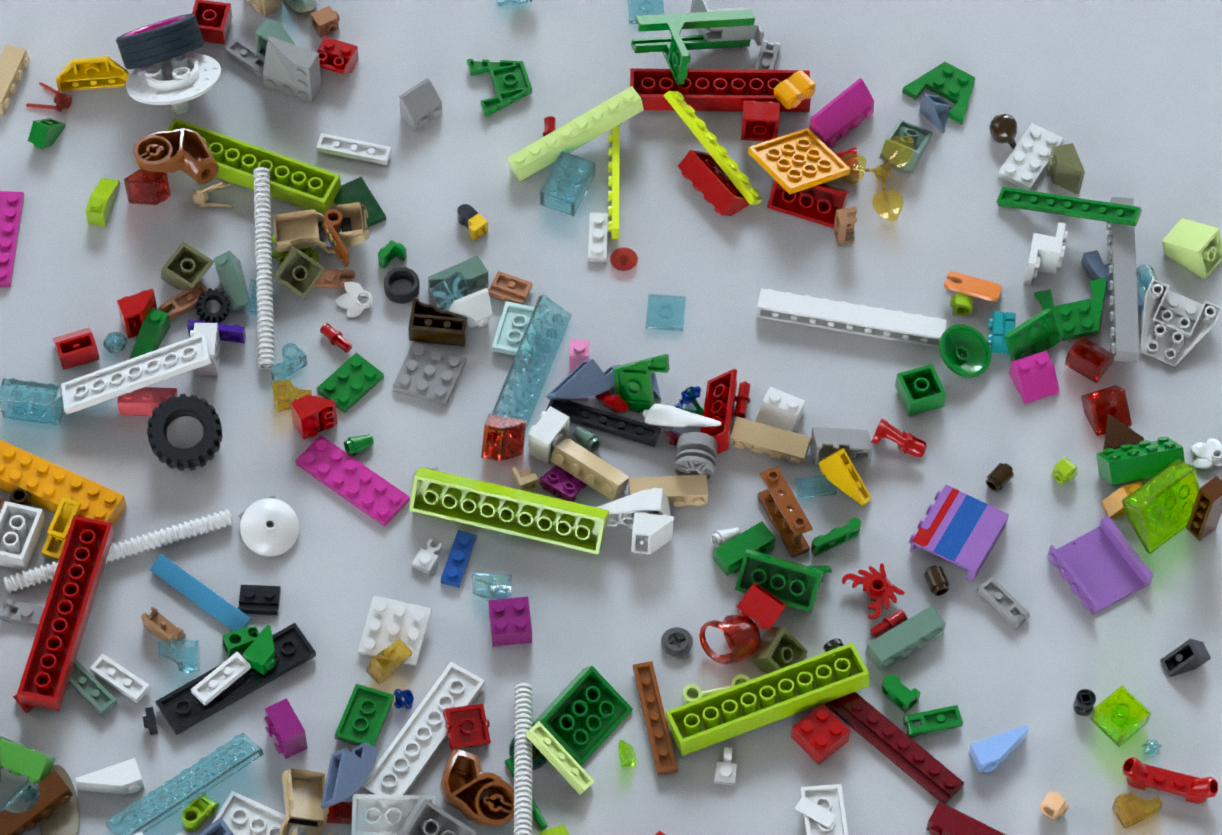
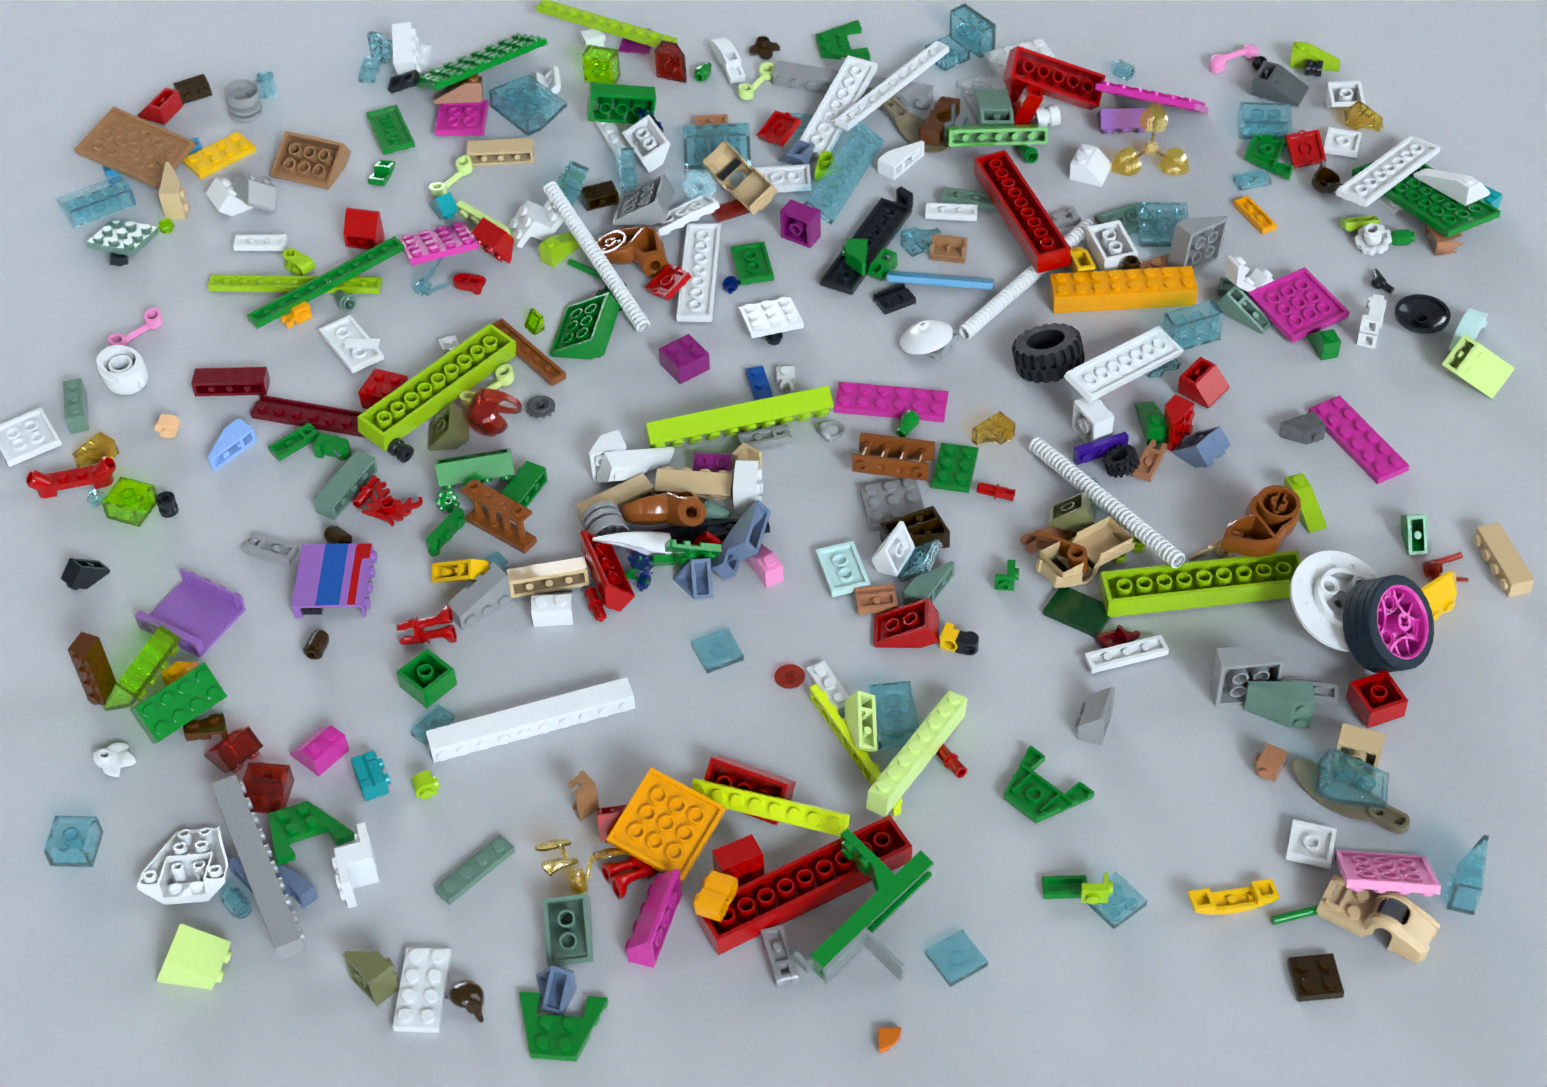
camera: 155 degrees right, 10 degrees down
(34, 263) = (1303, 429): none -> flat silver slope
(131, 282) = (1203, 447): none -> sand blue slope
(185, 267) = (1171, 476): olive slope -> none
(220, 678) = (875, 228): white plate -> none
(232, 280) = (1129, 489): sand green slope -> none
(290, 364) = (1018, 454): clear light blue plate -> none
(313, 415) = (959, 415): red slope -> none
(337, 55) = (1222, 724): red slope -> none
(347, 773) = (730, 212): sand blue slope -> none
(349, 169) = (1116, 637): none -> dark red slope
(352, 298) = (1003, 528): white plate -> none
(388, 661) = (758, 290): clear yellow arch -> none
(395, 425) = (896, 447): none -> dark orange fence
(401, 273) = (980, 546): black tyre -> none
(492, 586) = (712, 371): clear light blue slope -> none
(503, 437) = (786, 466): clear red slope -> none
(504, 250) = (907, 626): none -> red slope
(533, 360) = (805, 539): clear light blue plate -> none
(537, 16) = (1062, 886): none -> green tile
(559, 757) = (581, 288): yellowish green plate -> none
(599, 179) = (861, 720): none -> yellowish green slope
(634, 450) = (670, 508): none -> dark orange piece
(722, 536) = (545, 490): white cone -> none
(761, 606) = (477, 434): red slope -> none
(928, 357) = (436, 718): none -> clear light blue plate
(952, 225) = (474, 869): none -> sand green plate
(970, 346) = (398, 730): green dish -> none
(973, 286) = (415, 807): orange piece -> none
(1033, 336) = (332, 772): green plate -> none
(1064, 471) = (254, 676): lime plate -> none
(1069, 206) = (346, 914): green plate -> none

